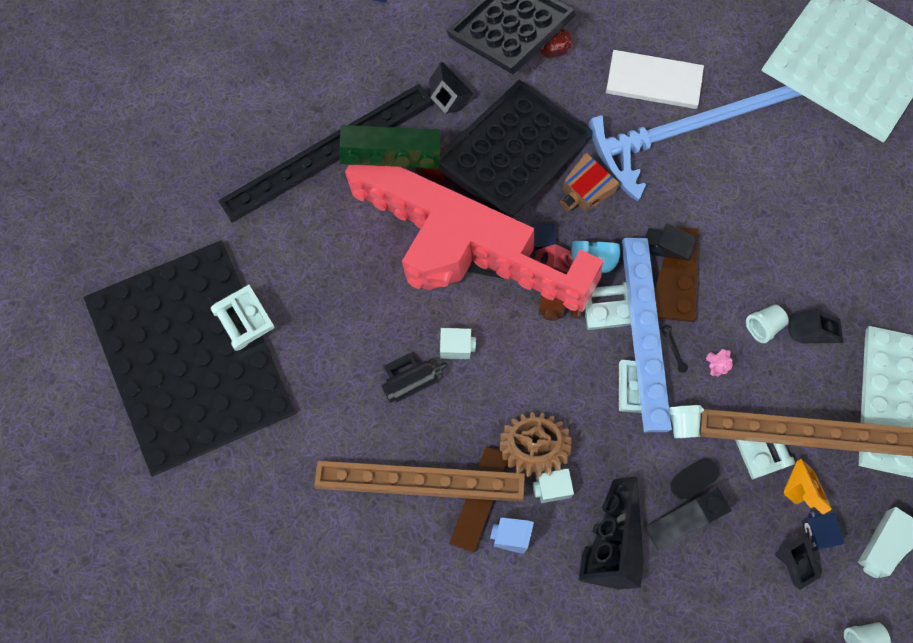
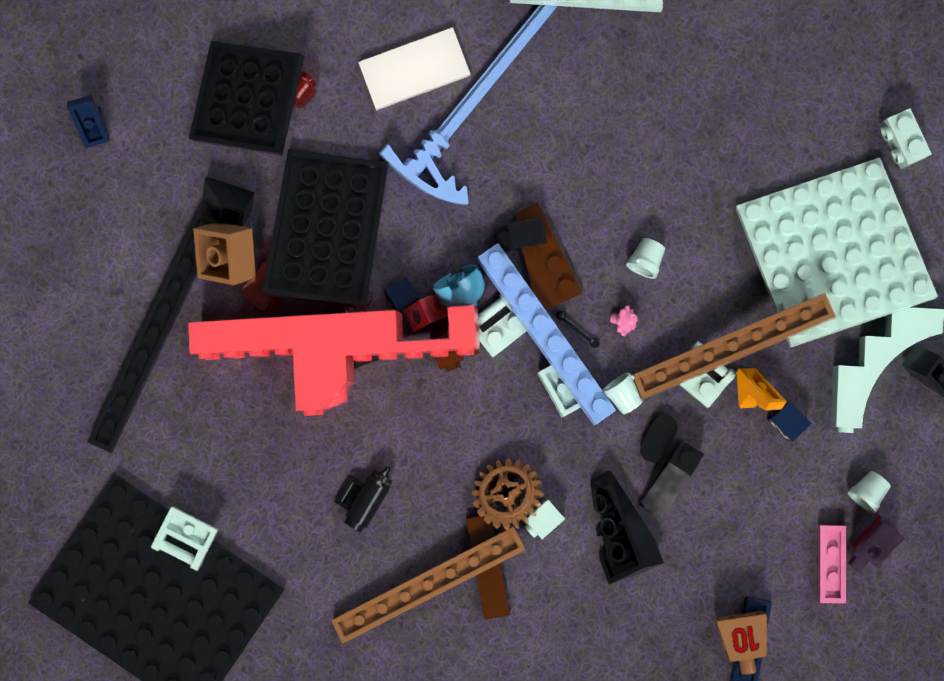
camera: 30 degrees left, 15 degrees up
(389, 146) = (217, 309): dark green brick -> none
(422, 112) = (224, 253): none -> medium nougat brick
(456, 343) = (386, 444): light aqua brick -> none
(512, 534) = (533, 584): light blue slope -> none
(587, 185) = (413, 221): torso -> none
(799, 561) = (783, 459): black slope -> none
(815, 327) = (691, 237): black slope -> none

